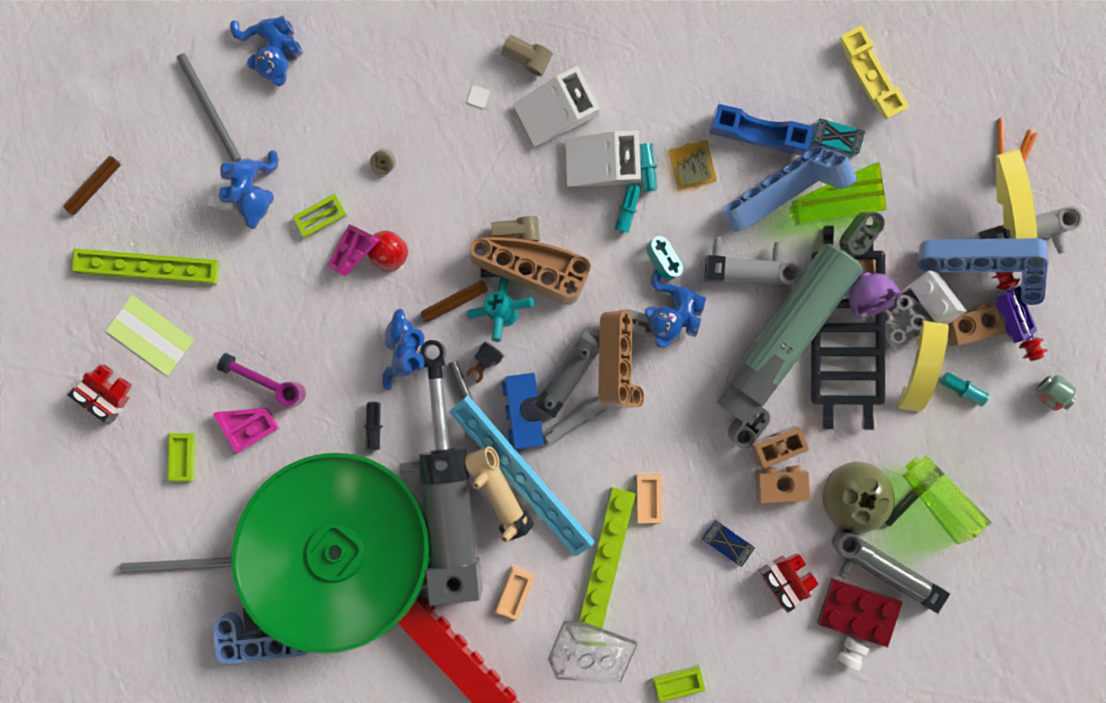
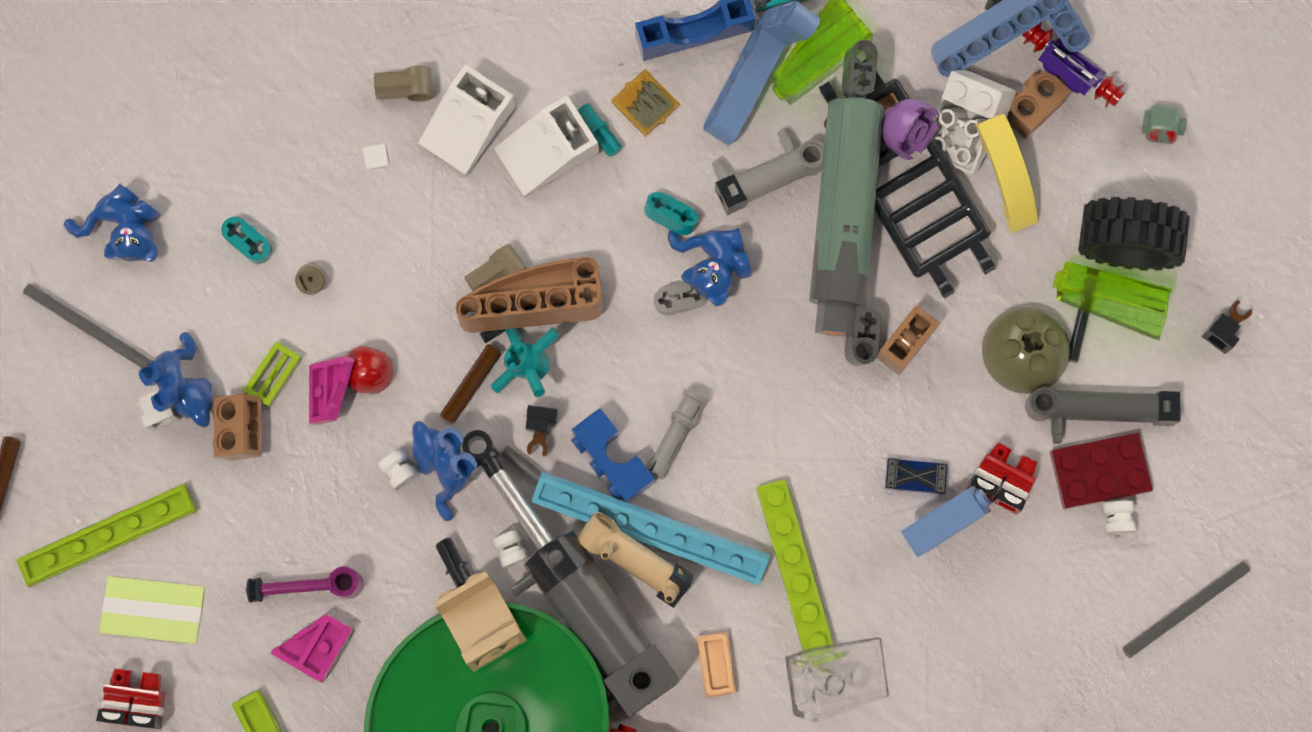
camera: 30 degrees left, 10 degrees down
(273, 241) = (237, 427): none -> medium nougat brick
(348, 109) = (242, 244): none -> teal beam
(366, 476) = (479, 620): none -> tan panel
(370, 334) = (398, 469): none -> white wheel
(416, 440) = (510, 553): none -> white wheel
(569, 373) = (639, 389): dark grey piece -> none
(616, 362) = (681, 347): medium nougat beam -> none
(628, 208) = (602, 184): teal axle -> none
(649, 498) = (802, 477): light nougat tile -> none
(679, 684) = (953, 661): lime tile -> none
(730, 592) = (946, 520): none -> medium blue slope
(795, 491) = (923, 393): medium nougat brick -> none
(964, 389) = (1066, 173): teal axle -> none
(989, 466) = (1134, 233): none -> black tyre
(1008, 564) = (1223, 329): none -> black piece

